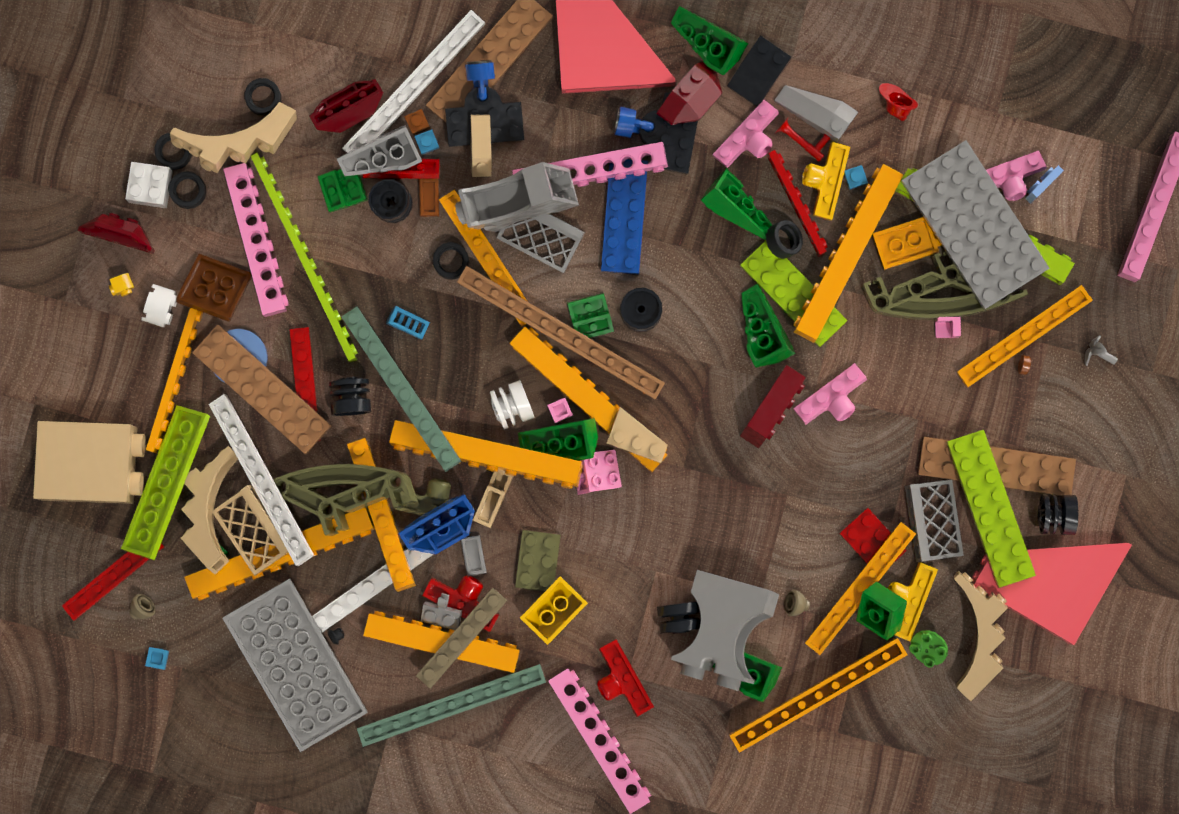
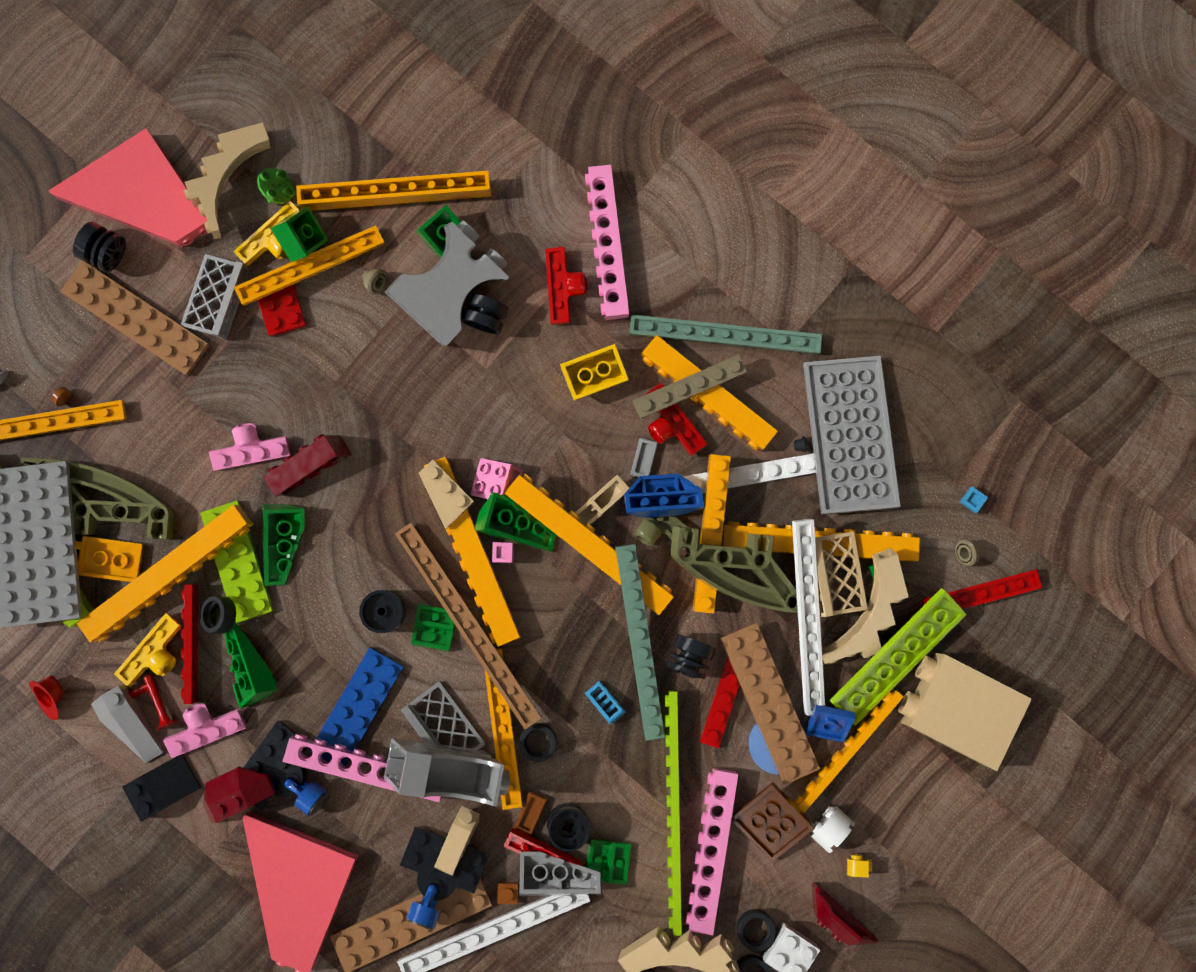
camera: 160 degrees left, 0 degrees up
(200, 396) = (830, 723): none -> blue plate
(347, 106) = (566, 939): dark red wedge -> none
(427, 142) = (507, 868): dark azure plate -> none
(440, 614) = (697, 418): light grey plate -> none
(511, 404) = (544, 578): white wheel -> none
(537, 560) = (588, 427): olive plate -> none
(712, 43) = (192, 836): green wedge -> none
(855, 177) = (125, 642): dark azure plate -> none
(947, 327) = (111, 462): bright pink panel -> none
(991, 508) = (156, 280): lime plate -> none

